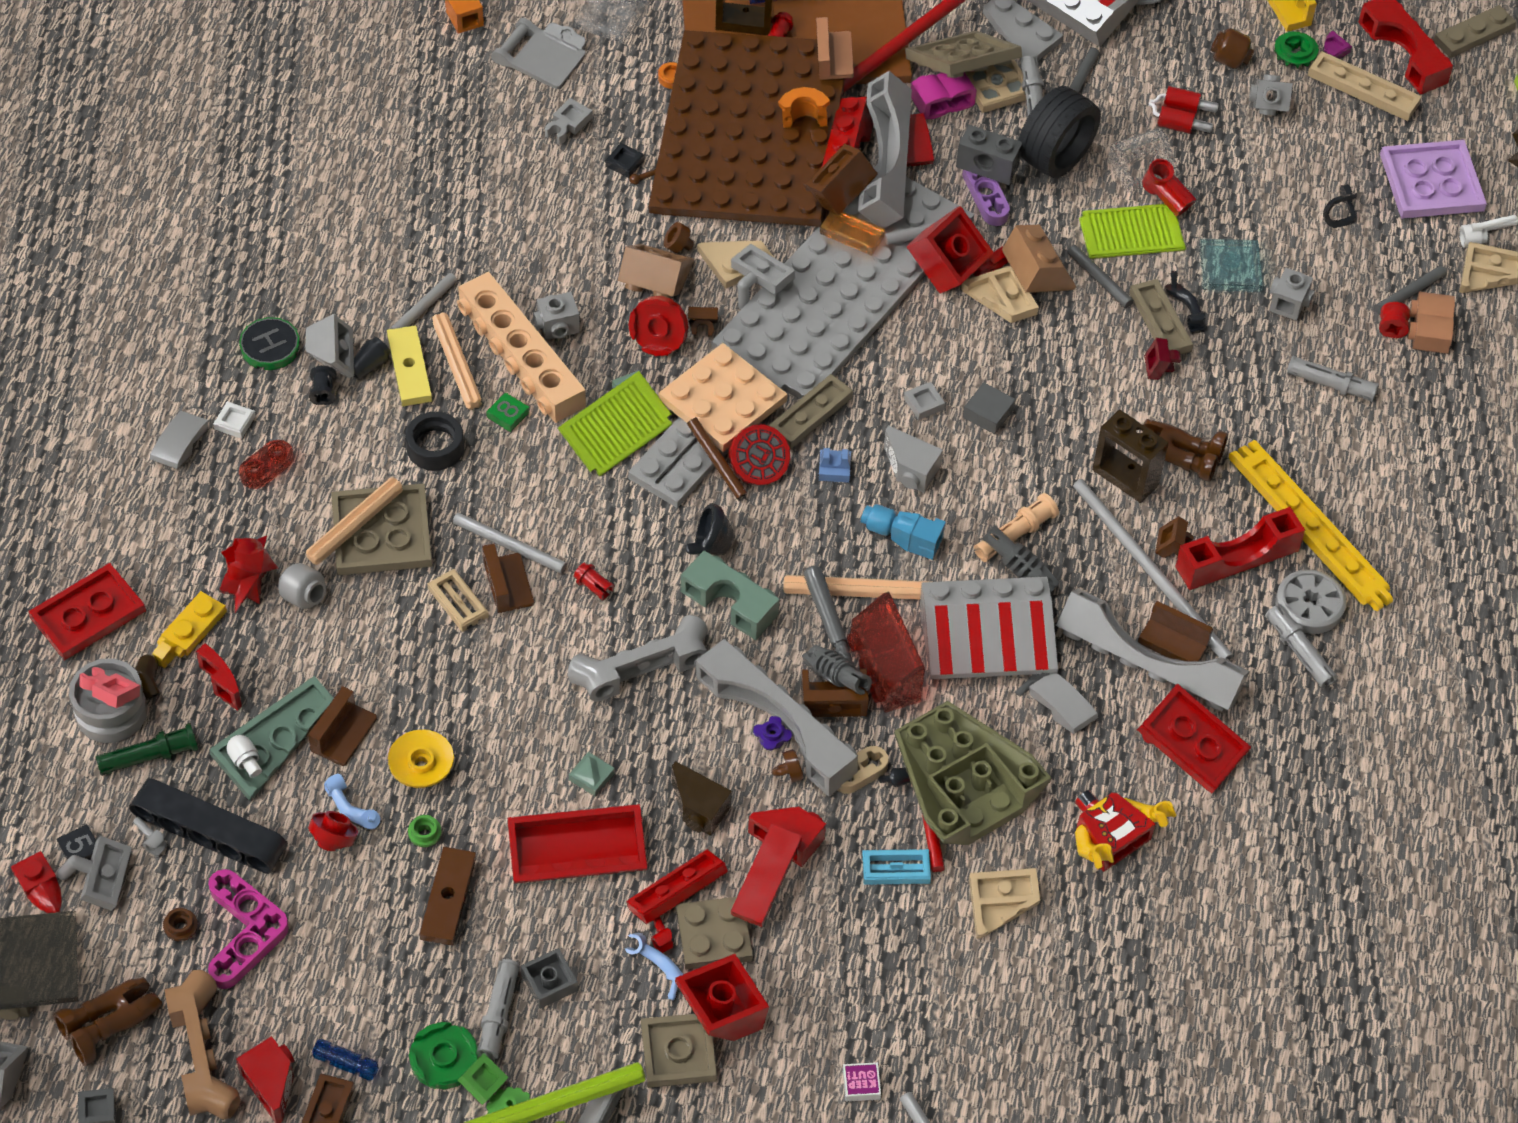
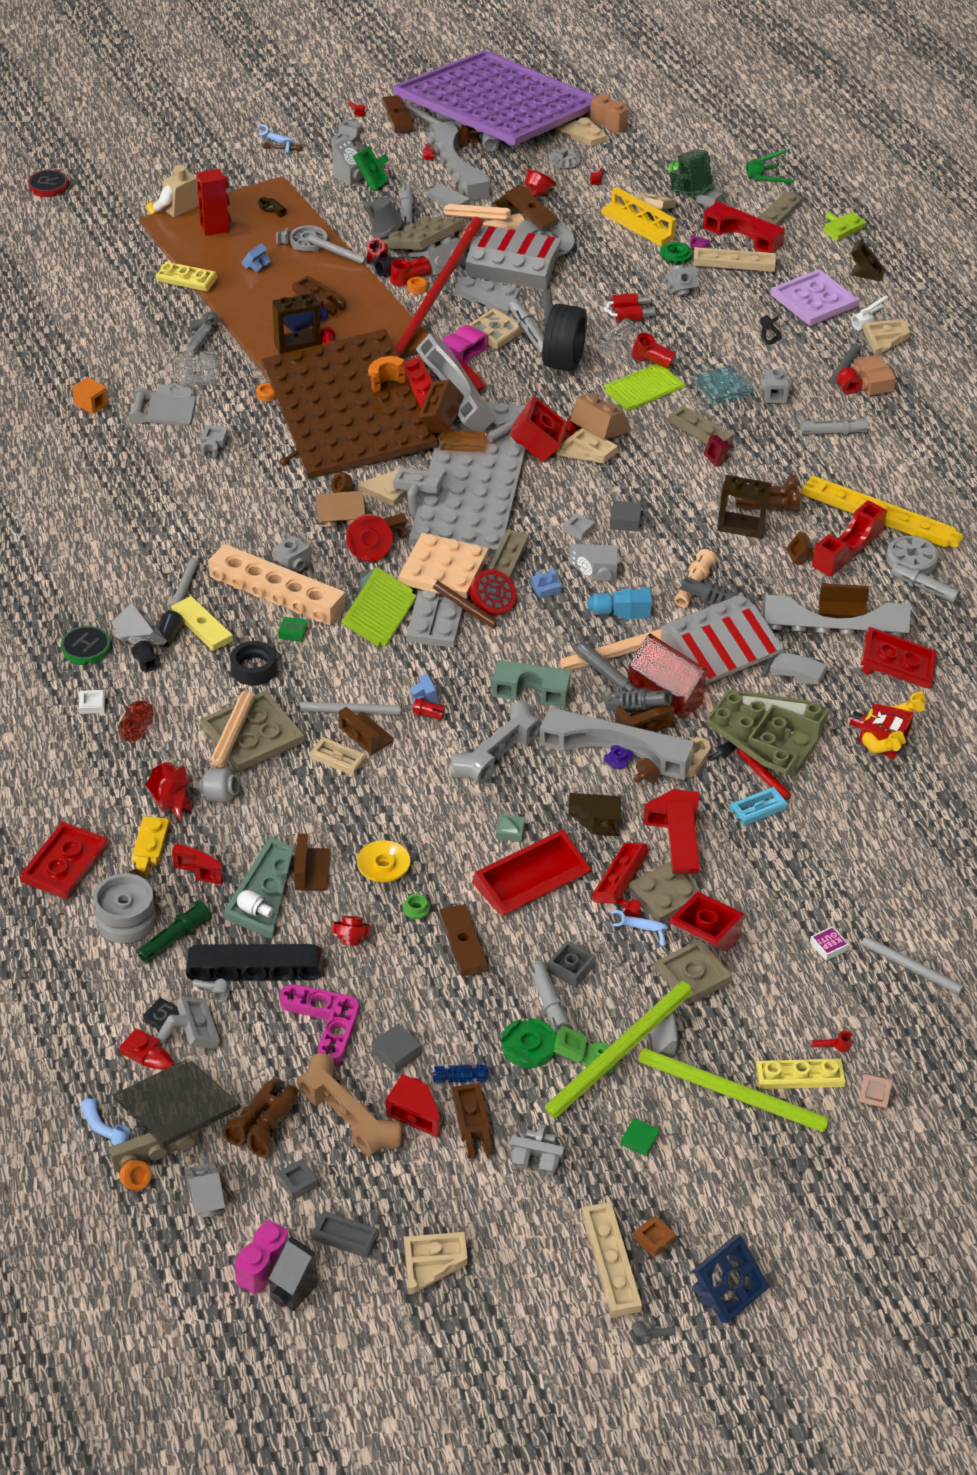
camera: 25 degrees left, 10 degrees down
(112, 689) = (131, 891): coral plate -> none
(176, 916) = (276, 1028): reddish brown plate -> none
(178, 439) = (59, 727): light grey slope -> none
(295, 998) = (396, 1048): none -> dark grey piece
(366, 818) = (330, 904): light blue piece -> none
(457, 361) = (234, 610): light nougat axle -> none
(602, 557) = (424, 690): none -> medium blue tile
(624, 160) = (269, 452): black tile -> none
(713, 532) = (492, 647): black hat -> none
(834, 52) = (380, 335): nougat panel -> none
(963, 53) = (466, 314): dark tan plate -> none
(985, 202) = (521, 385): medium lavender beam -> none
(989, 154) = (525, 366): dark grey brick -> none
(1001, 897) = (842, 796): tan wing -> none
(1100, 276) = (647, 419): dark grey bar -> none
(1146, 562) = (780, 566): light grey piece -> none
(1195, 320) = (711, 413): black piece -> none
(1232, 48) = (636, 263): reddish brown head -> none

